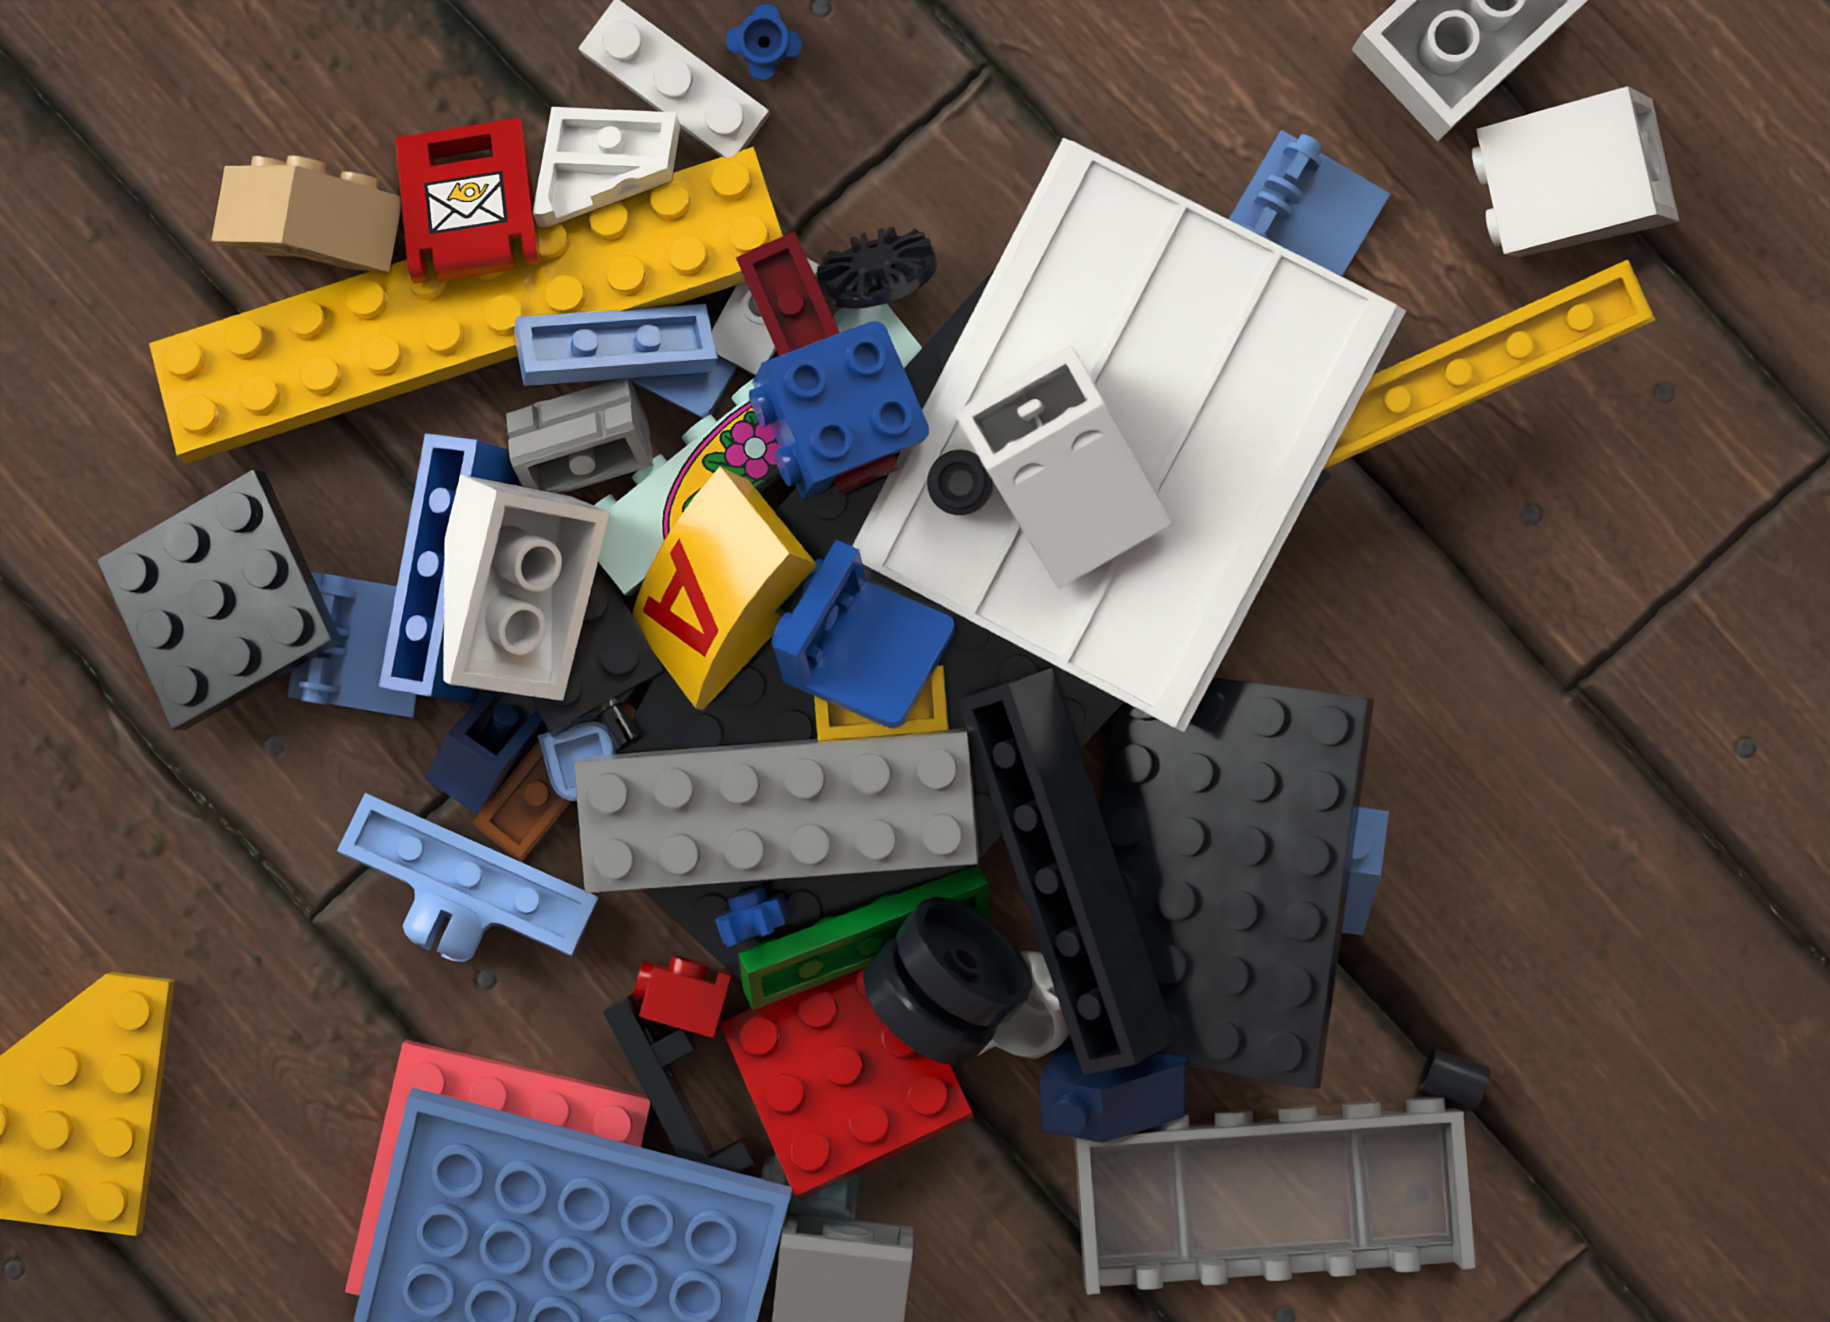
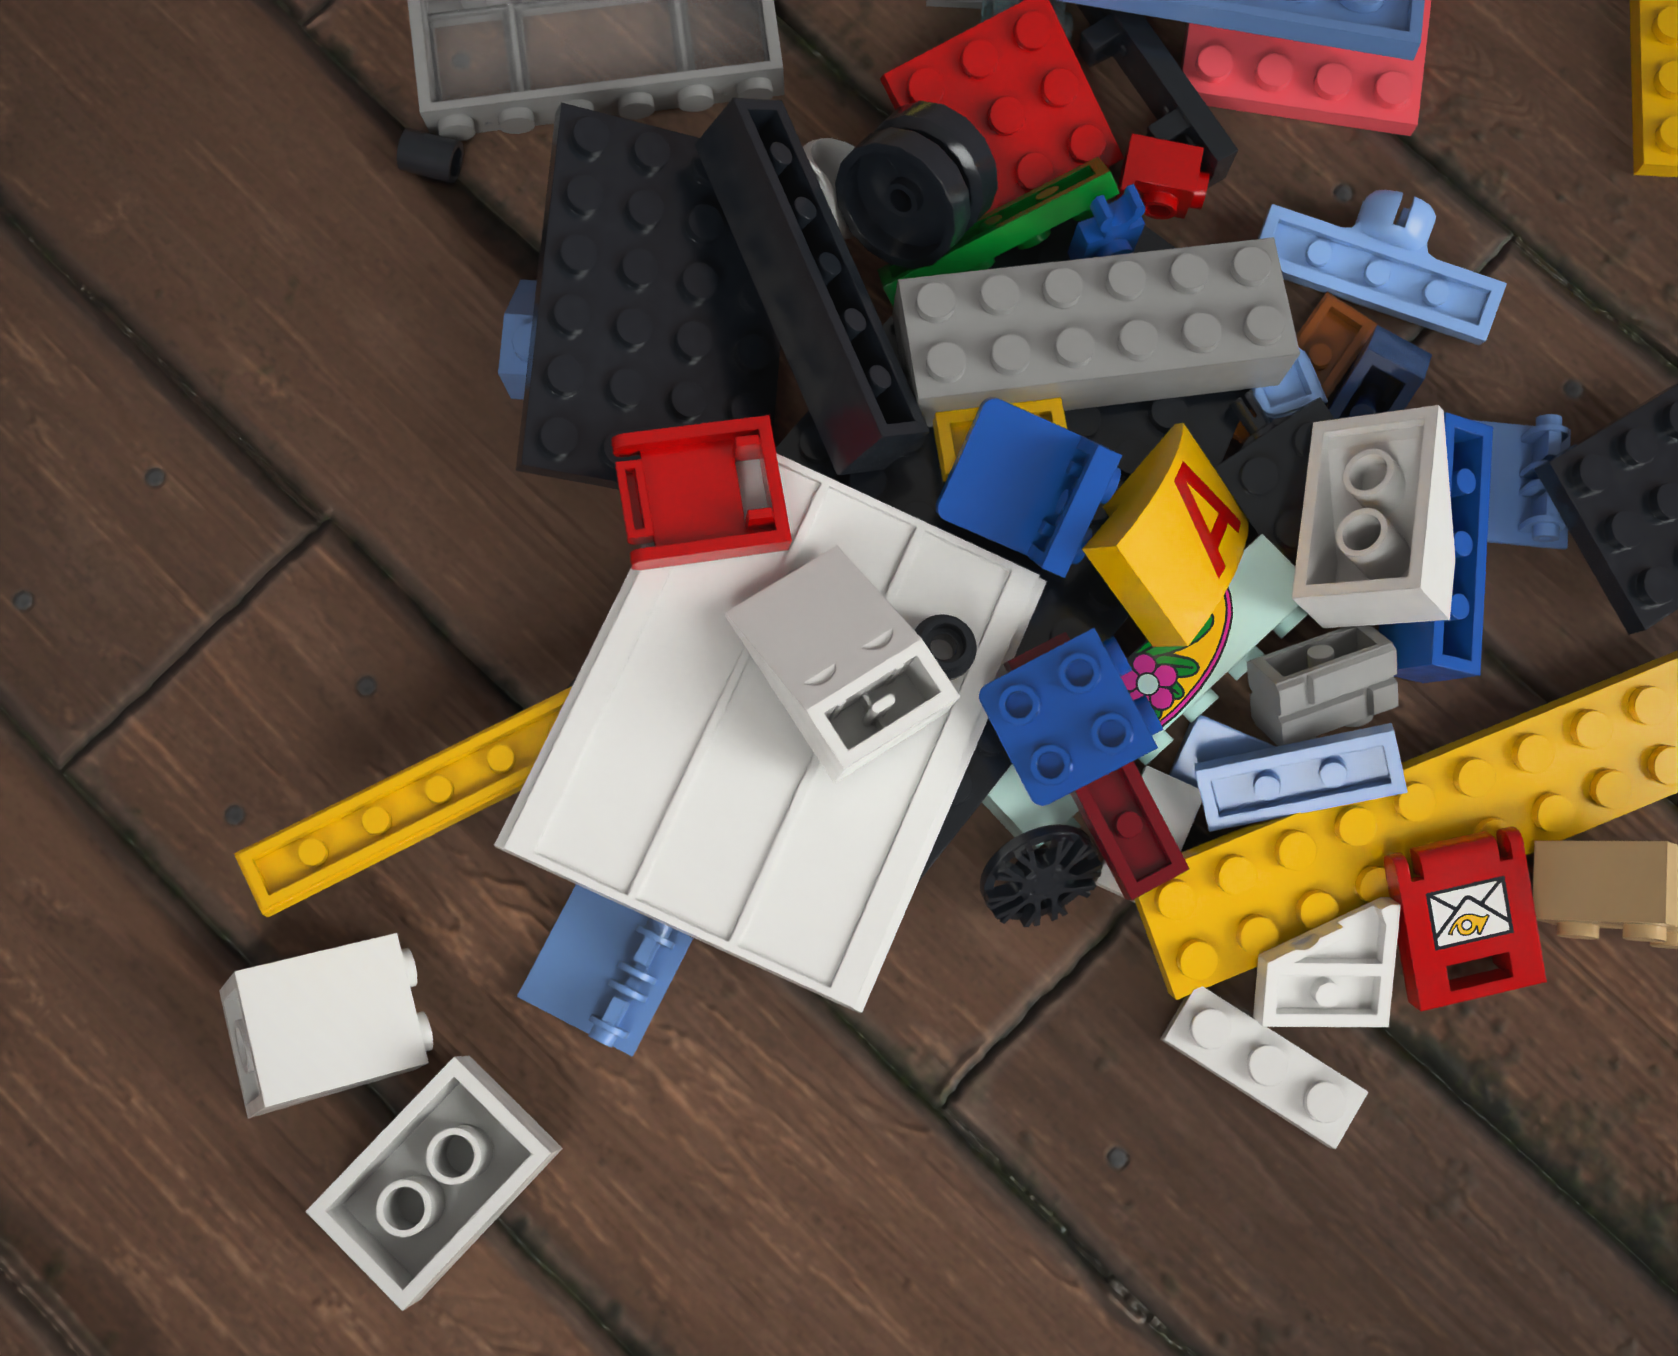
camera: 175 degrees right, 10 degrees down
(763, 23) = (1194, 1113): blue plate -> none
(1111, 1101) = (755, 80): dark blue slope -> none
(1201, 648) = (689, 493): none -> red container

